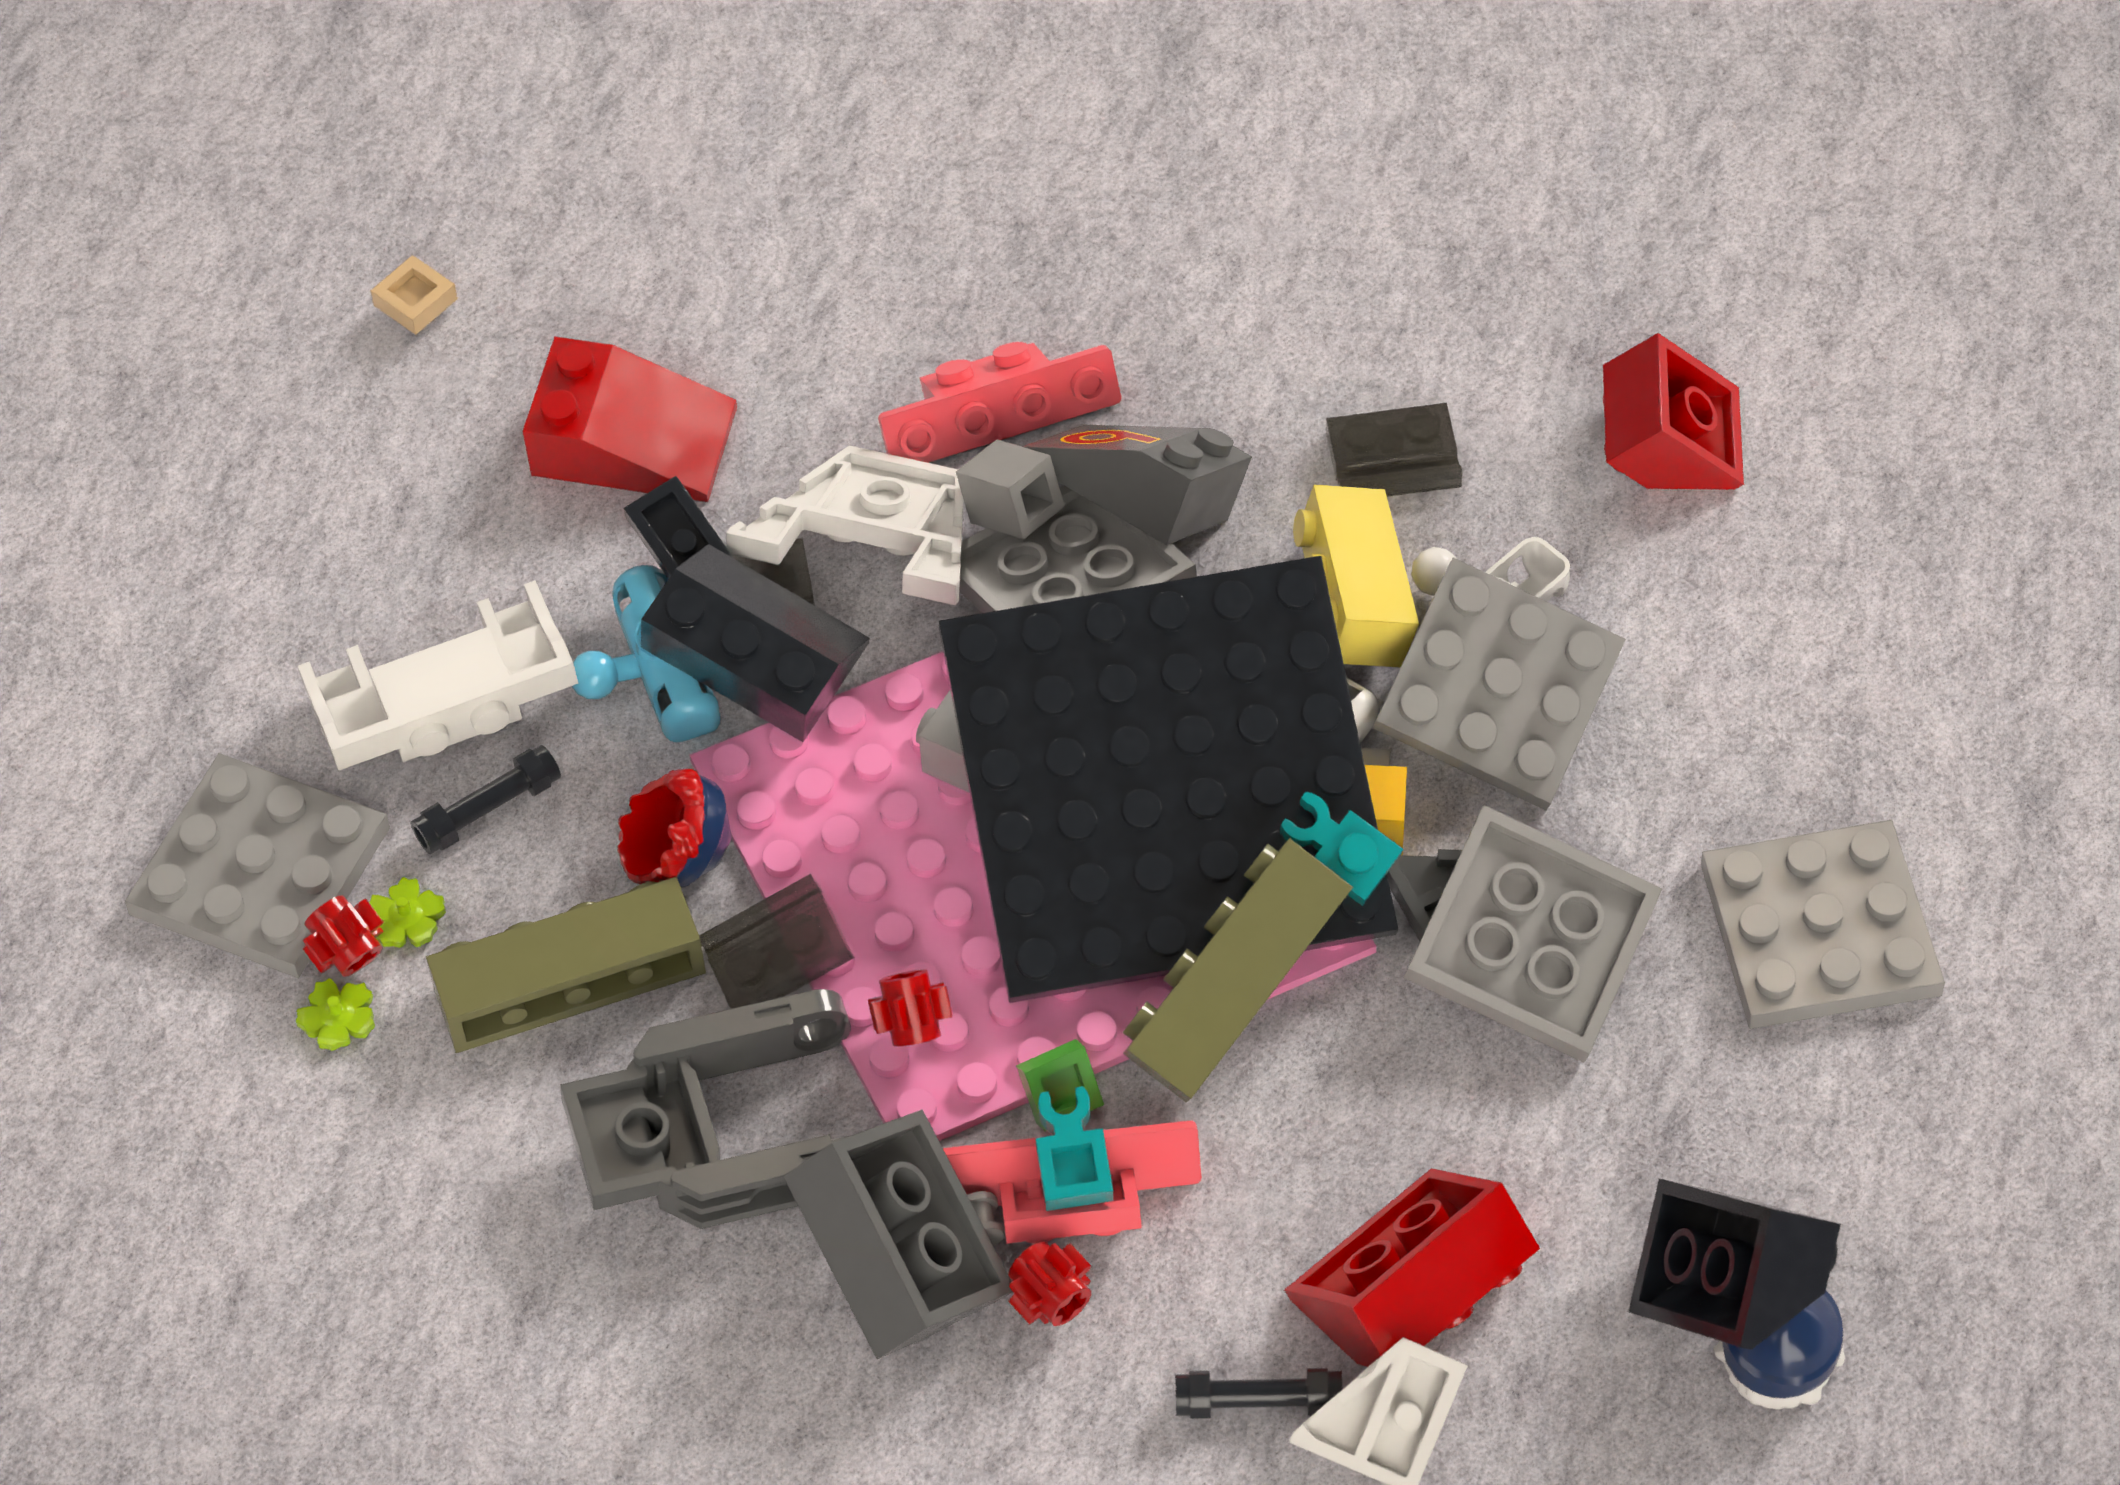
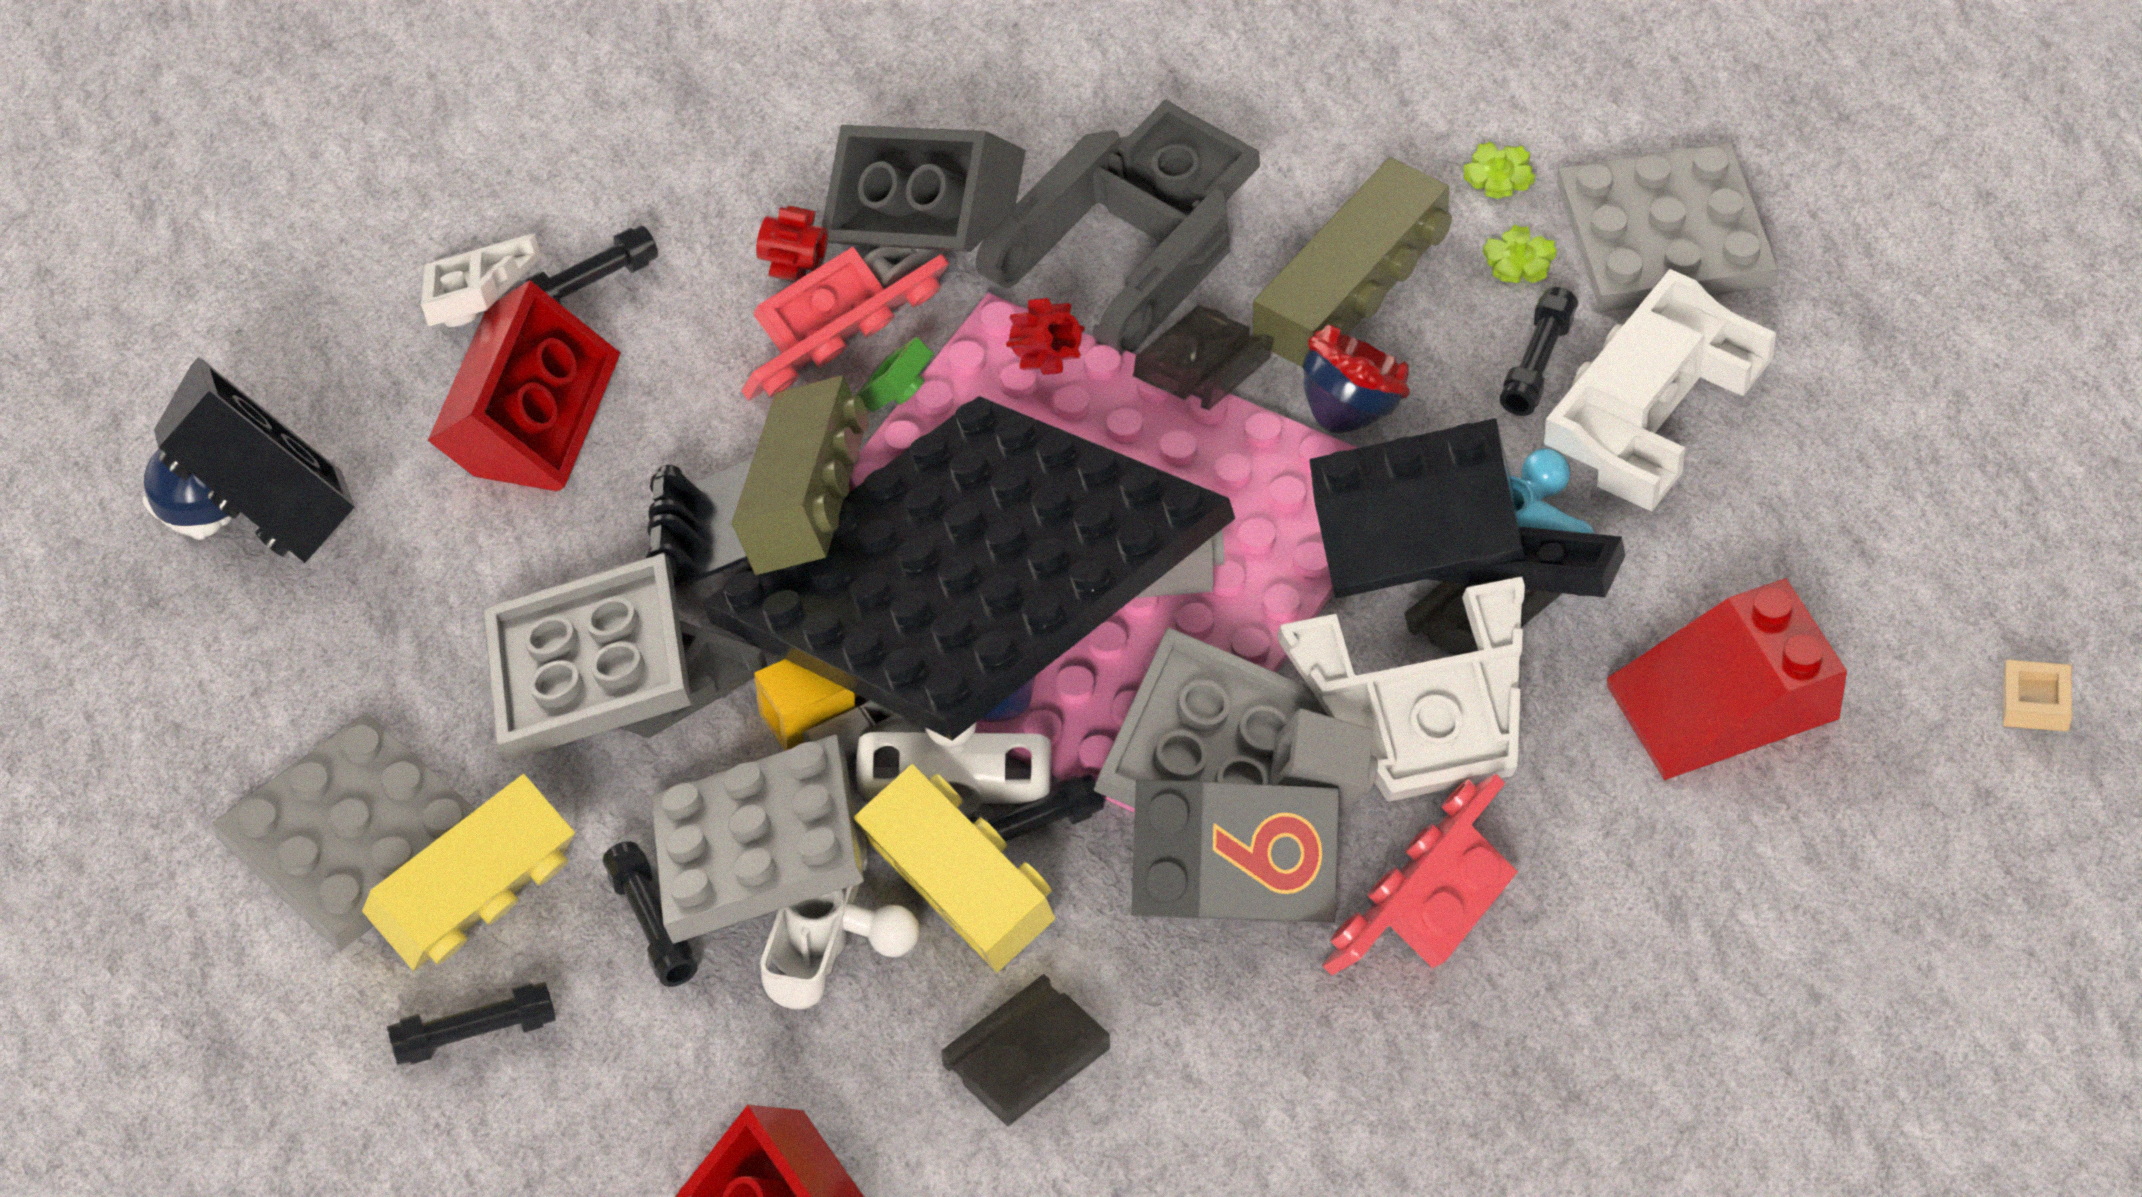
camera: 145 degrees right, 5 degrees down
(343, 935) = (1536, 189): red gear -> none
(1072, 1160) = (829, 288): teal plate -> none
(1339, 1015) = (694, 521): none -> black hinge
(1349, 849) = (769, 582): teal plate -> none
(1611, 746) = (631, 876): none -> black bar
(1753, 794) = (470, 874): none -> light yellow brick
(1763, 681) = (413, 1039): none -> black bar

